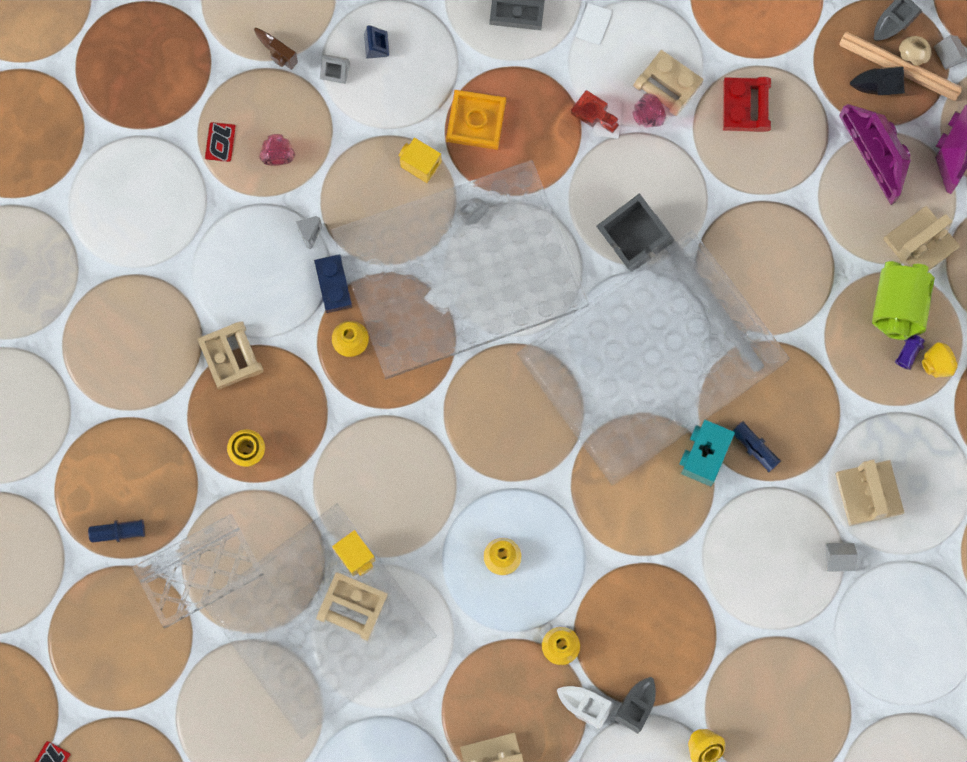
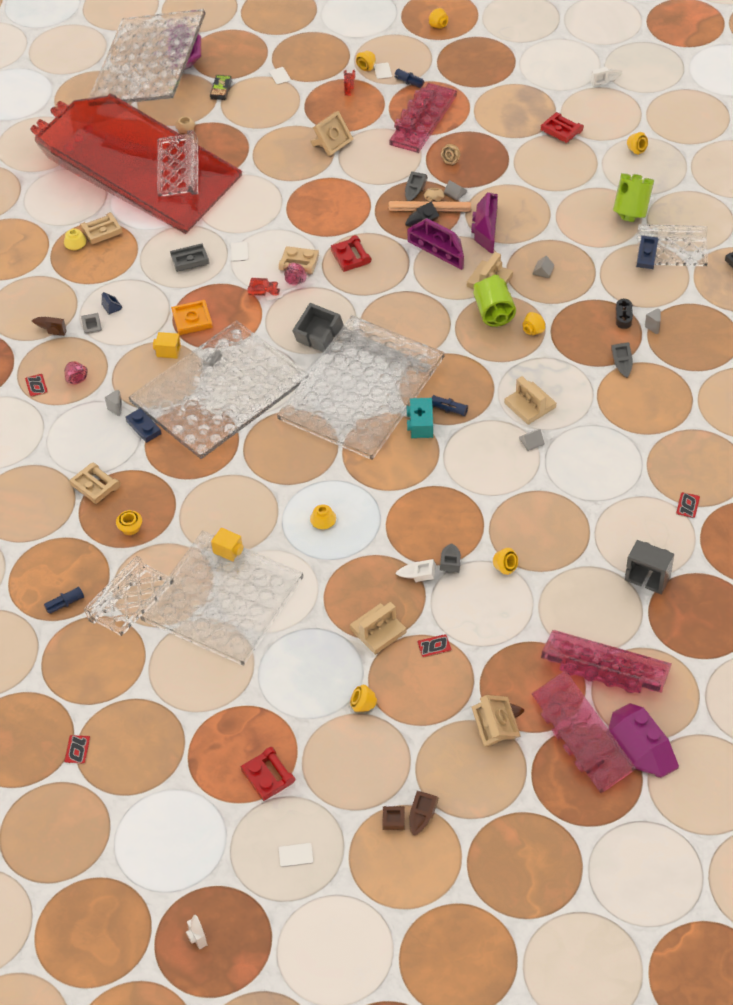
camera: 20 degrees left, 25 degrees down
(346, 344) = (168, 446): yellow cone -> none
(355, 597) = (240, 567): tan plate -> none
(553, 650) = (385, 547): yellow cone -> none
(910, 351) = (513, 327): dark purple pin -> none

